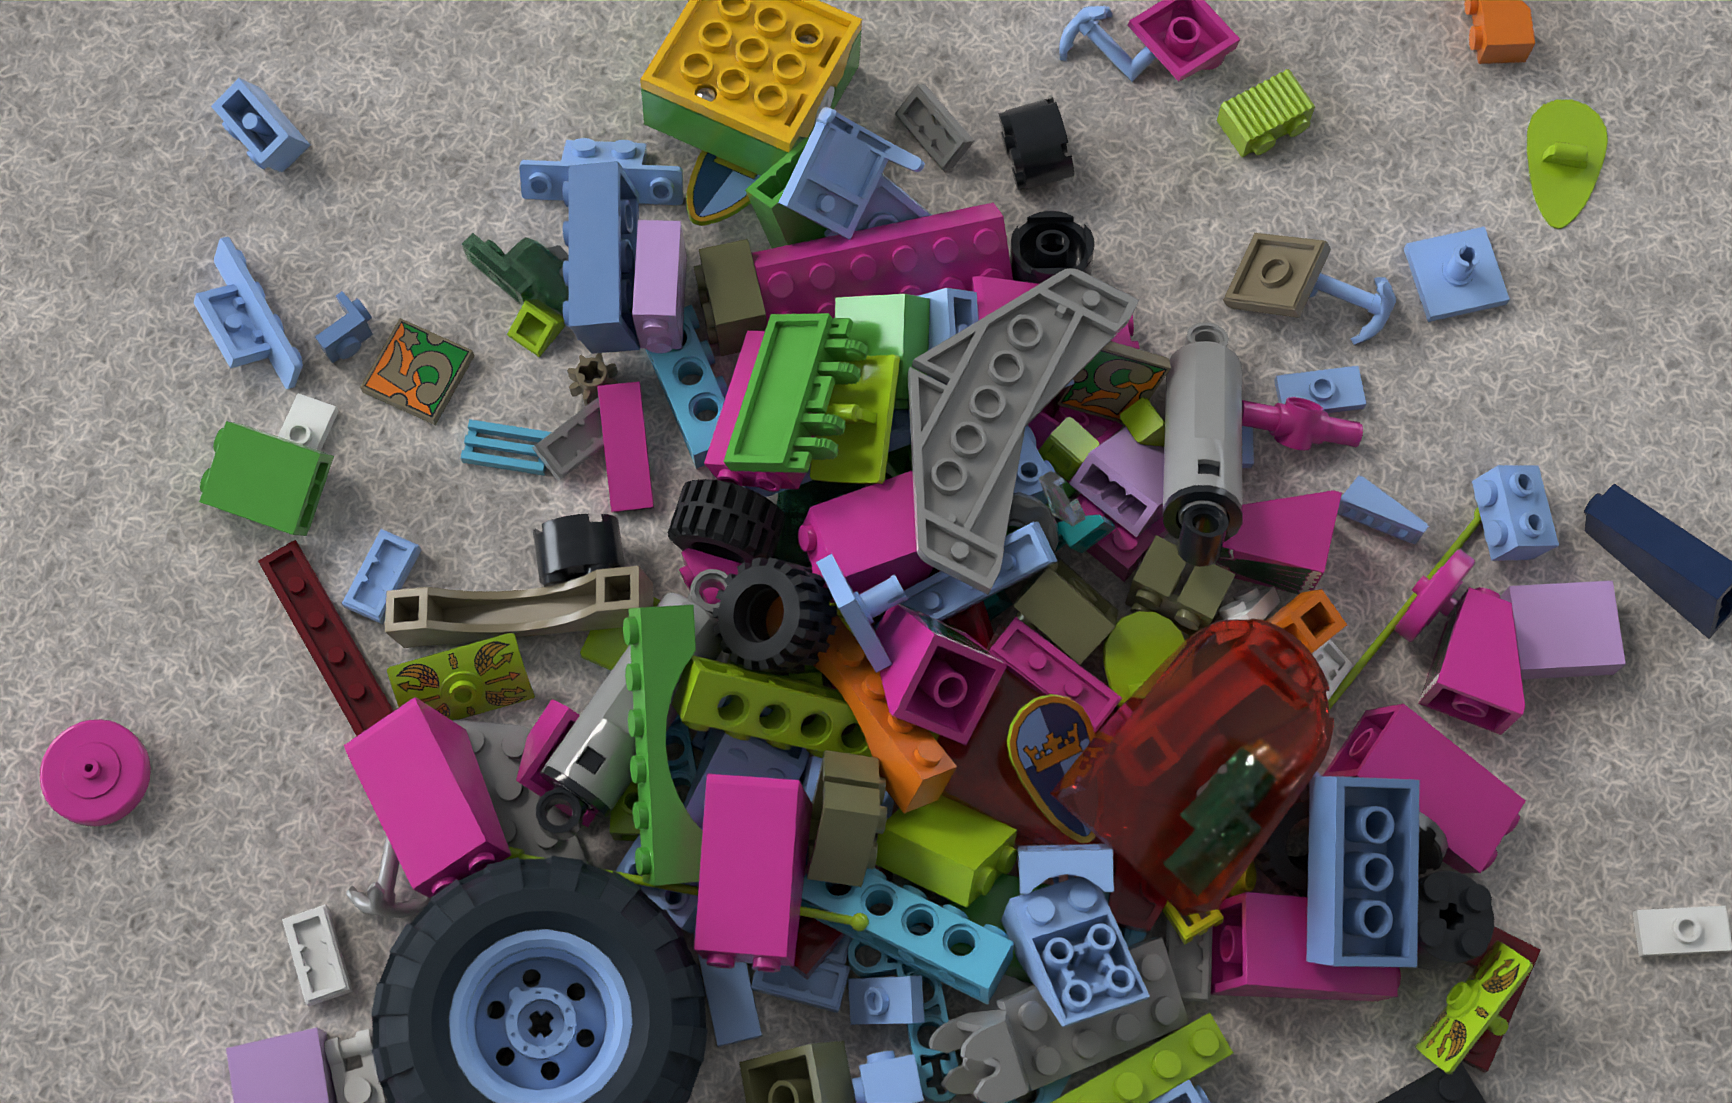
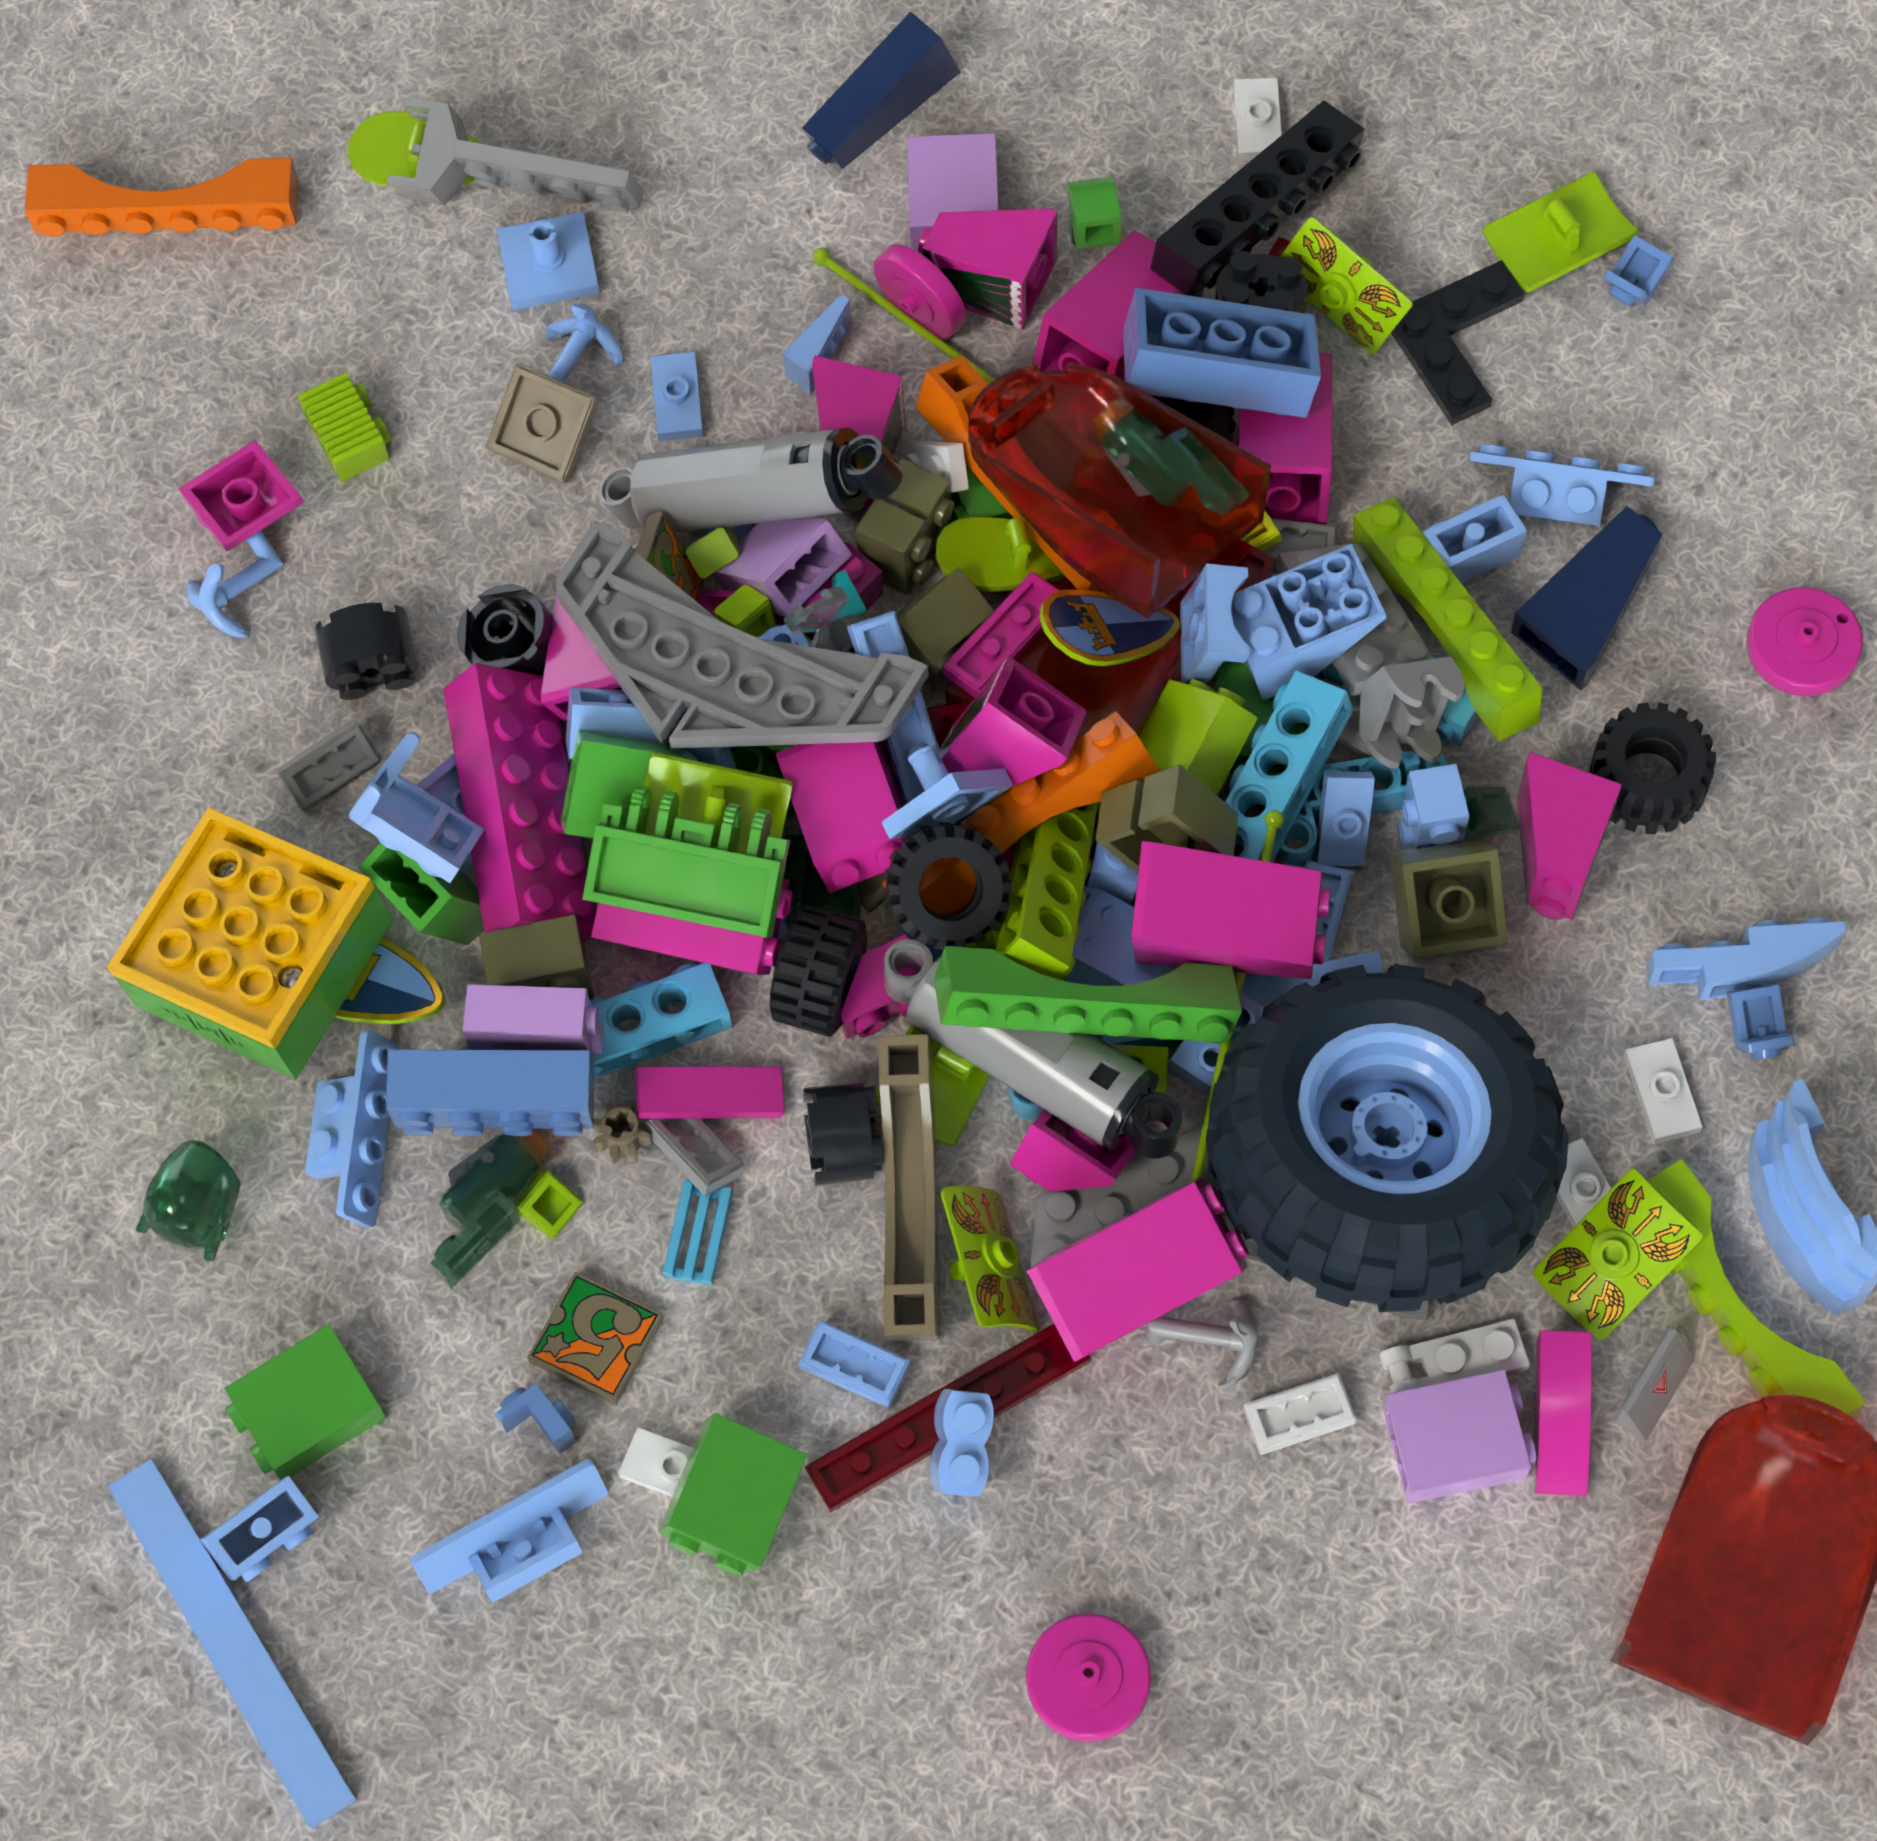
camera: 85 degrees left, 5 degrees down
(177, 122) = (232, 1644): none -> light blue tile
(296, 660) = (959, 1457): none -> light blue brick
(367, 153) = (302, 1404): none -> bright green brick
(531, 51) = (191, 1198): none -> clear green helmet
(1300, 423) = (717, 403): dark pink pin -> none
(1507, 503) = (827, 220): light blue brick -> none
(1537, 757) = (1094, 212): none -> bright green brick
(1546, 174) = (450, 158): none -> light grey hinge
(1664, 991) = (1258, 199): none -> black brick

